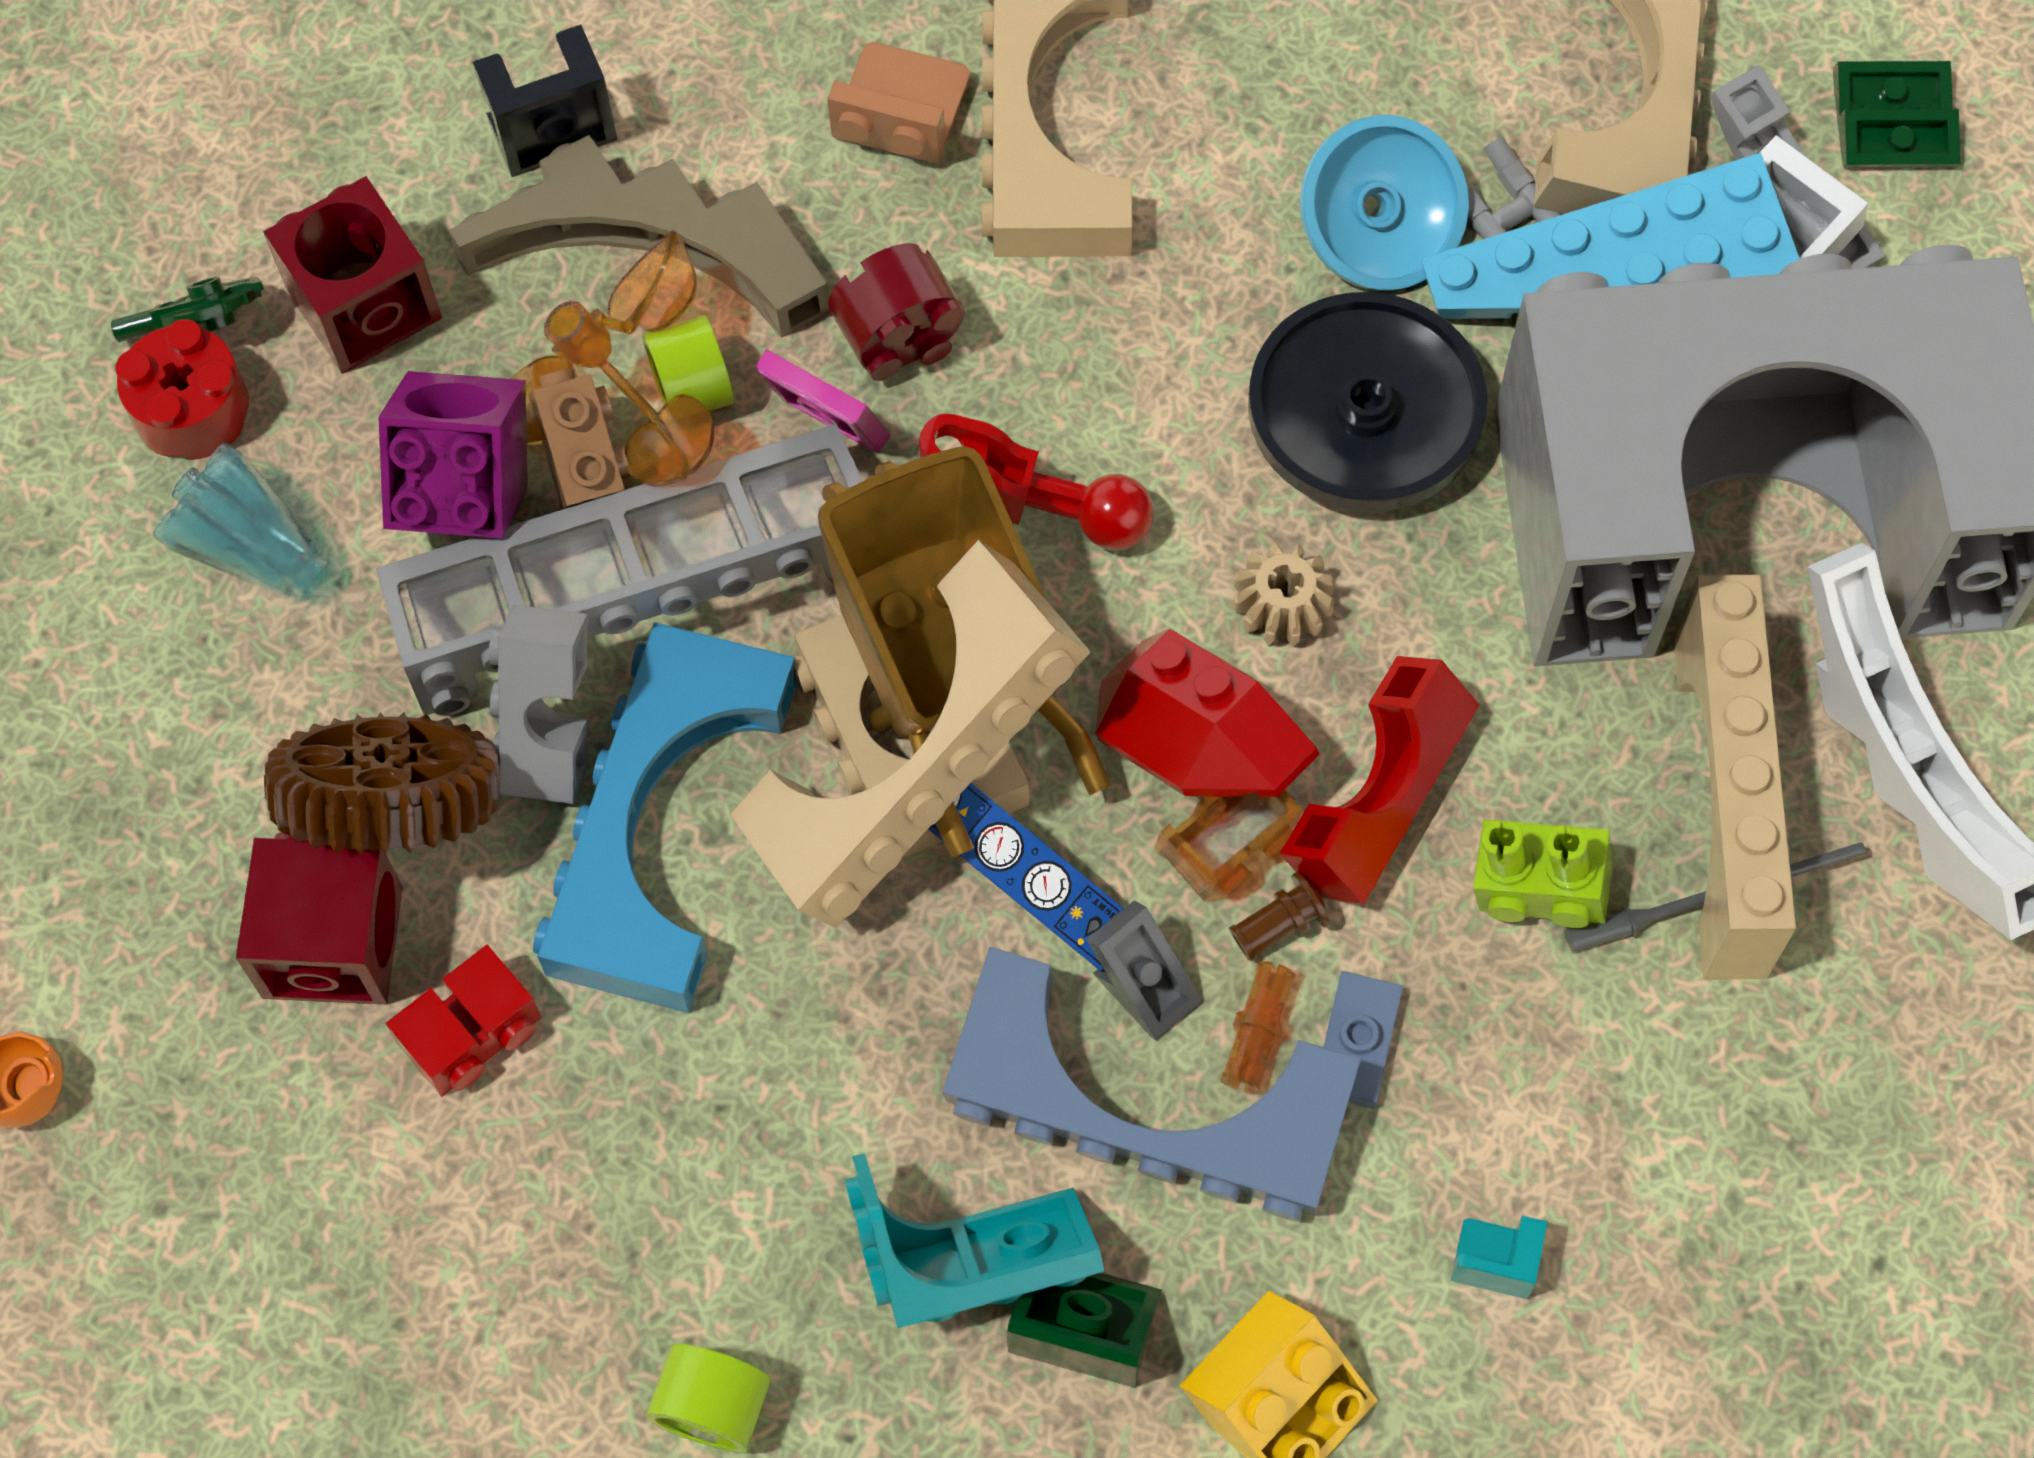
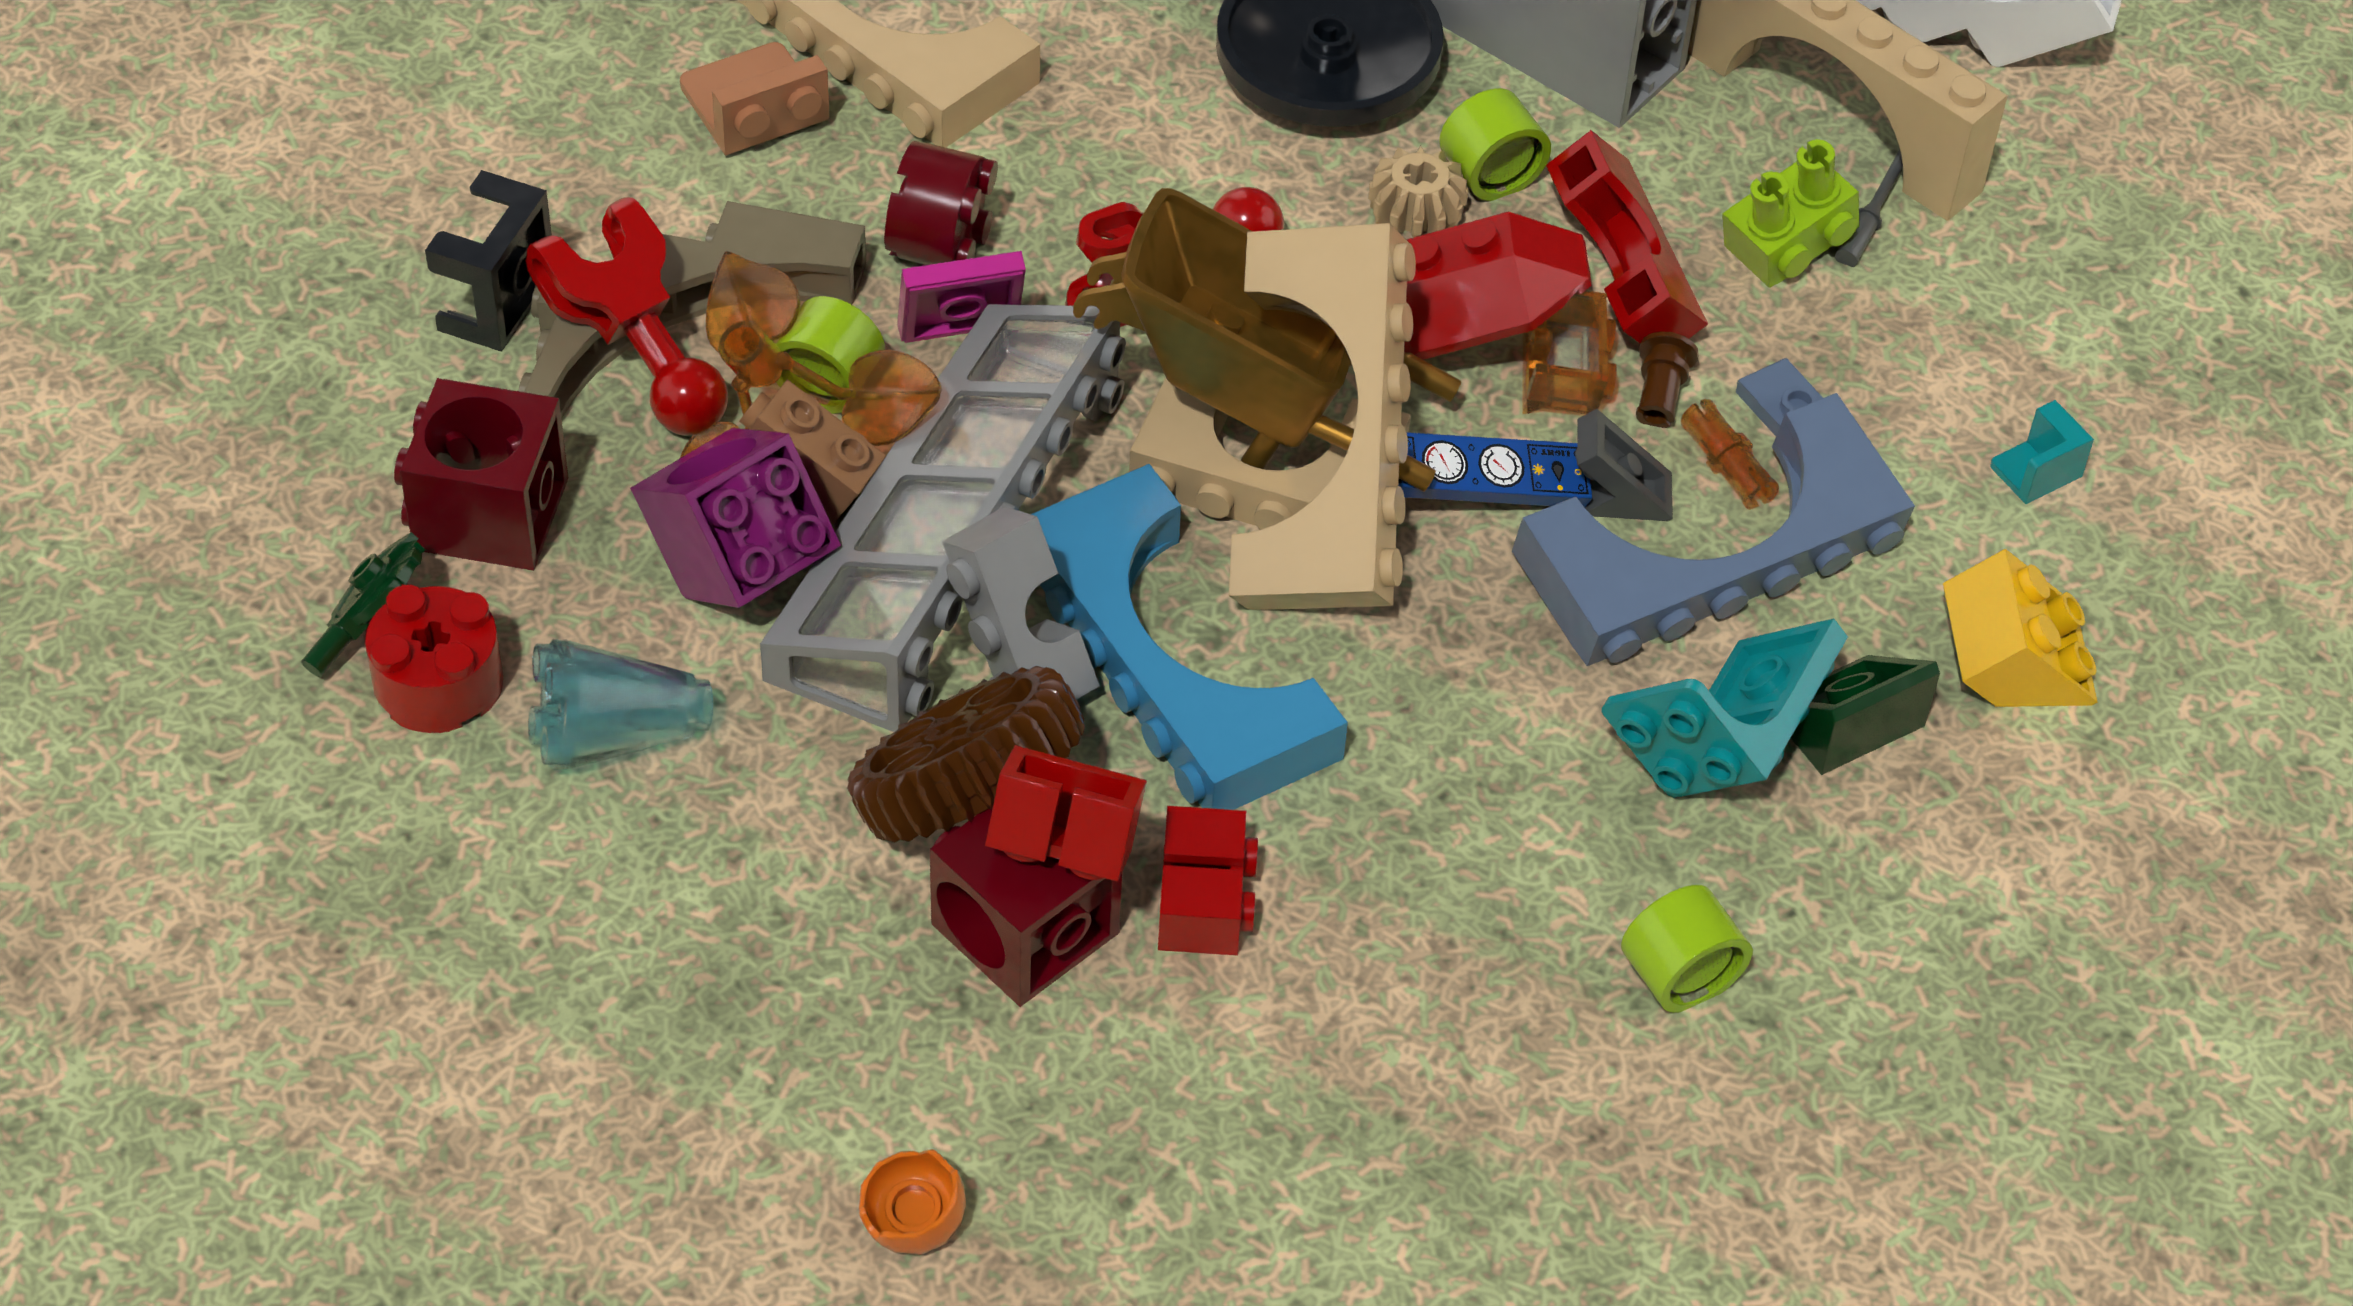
camera: 50 degrees left, 15 degrees down
(327, 888) = (1065, 813): none -> red piece
(576, 209) = (626, 300): none -> red piece
(1383, 599) = (1495, 143): none -> lime piece

